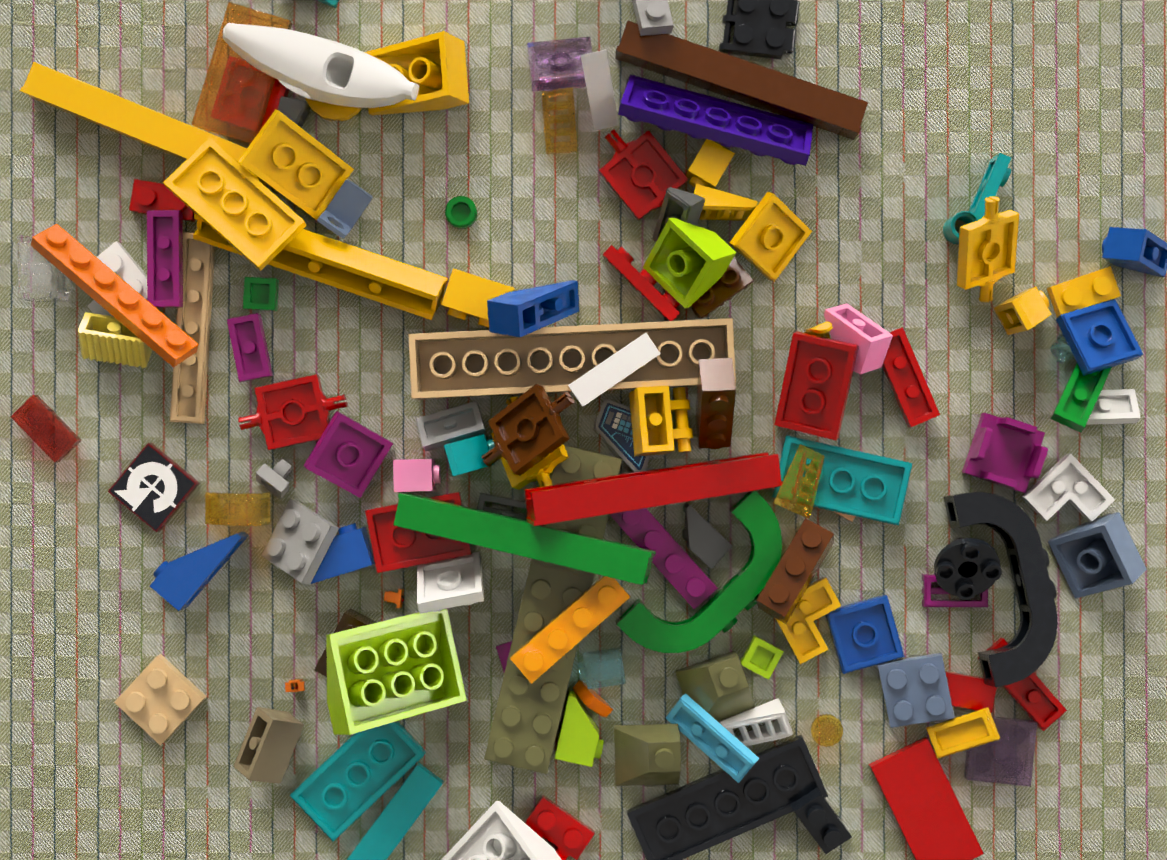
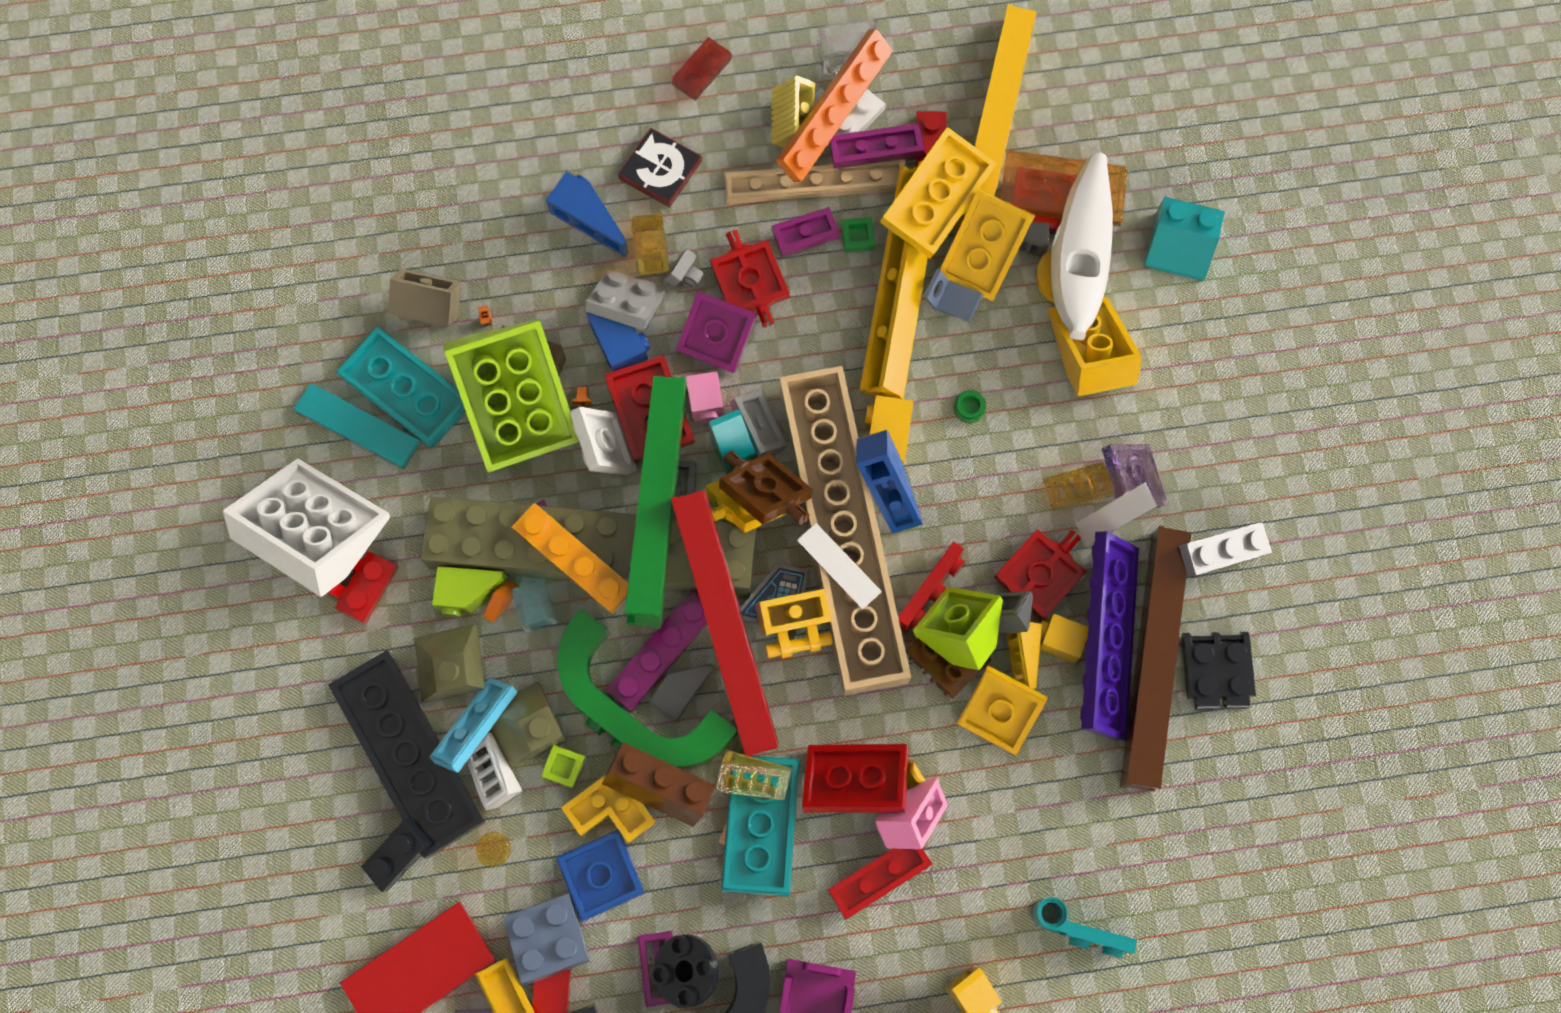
camera: 80 degrees right, 15 degrees down
(160, 699) = (459, 200): tan plate -> none
(715, 403) = (820, 670): reddish brown brick -> none
(987, 249) = (1031, 941): yellow plate -> none

